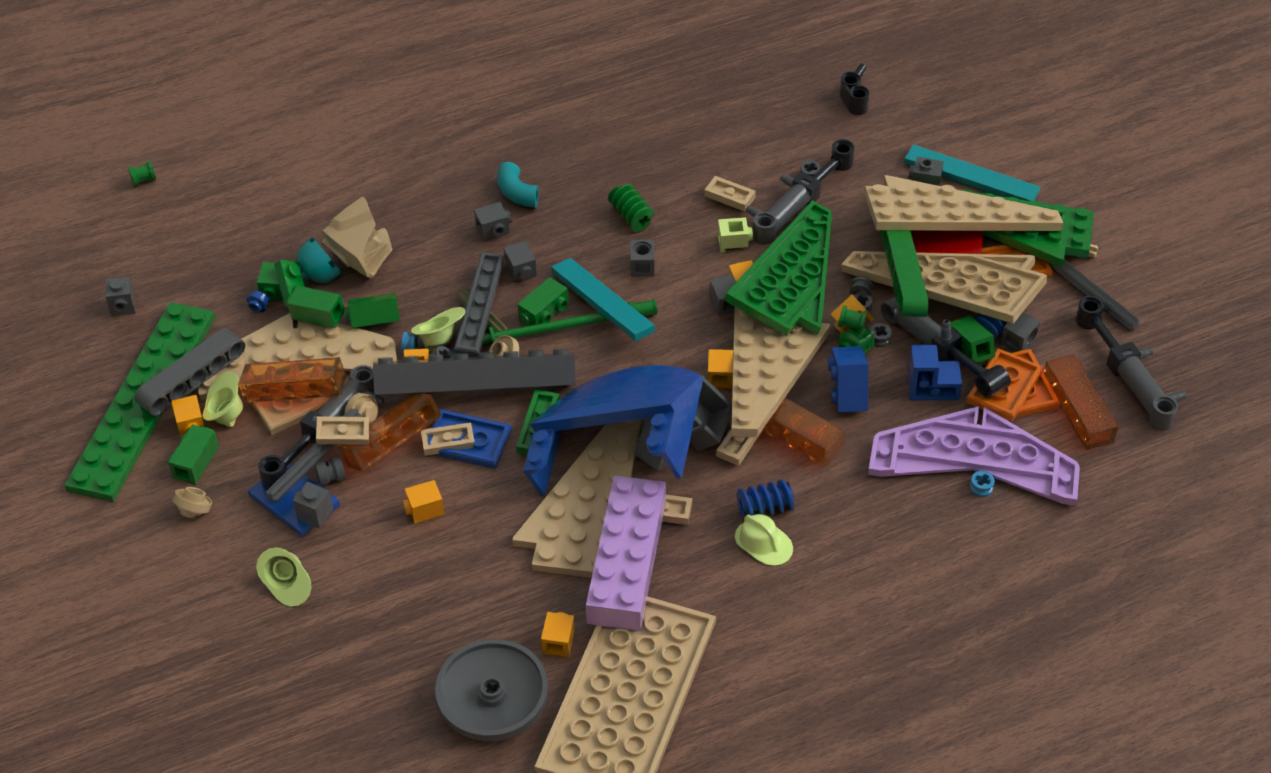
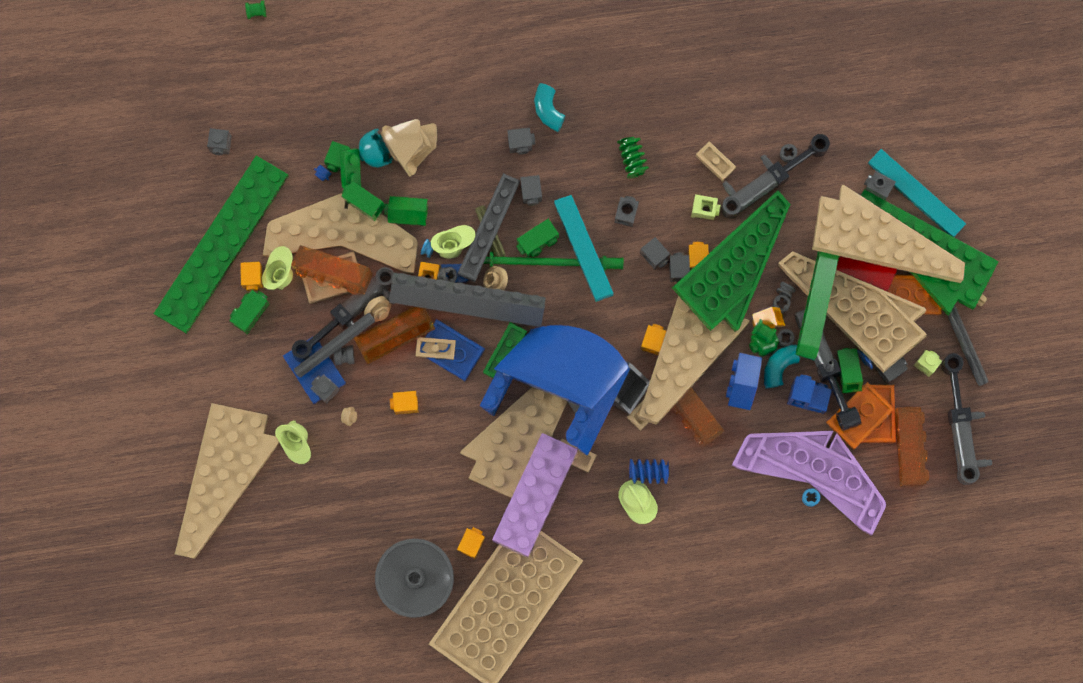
camera: 15 degrees right, 30 degrees up
(189, 371) = (259, 238): dark grey beam -> none
(192, 501) = (241, 356): tan plate -> none
(196, 626) = (227, 463): none -> tan wing
(342, 430) = (357, 337): tan plate -> none
(352, 533) = (349, 416): none -> tan plate
(690, 288) = (655, 254): none -> dark grey brick
(852, 93) = (854, 78): black beam -> none
(882, 358) = (777, 364): none -> teal cylinder
(1060, 309) = (928, 362): none -> yellowish green brick

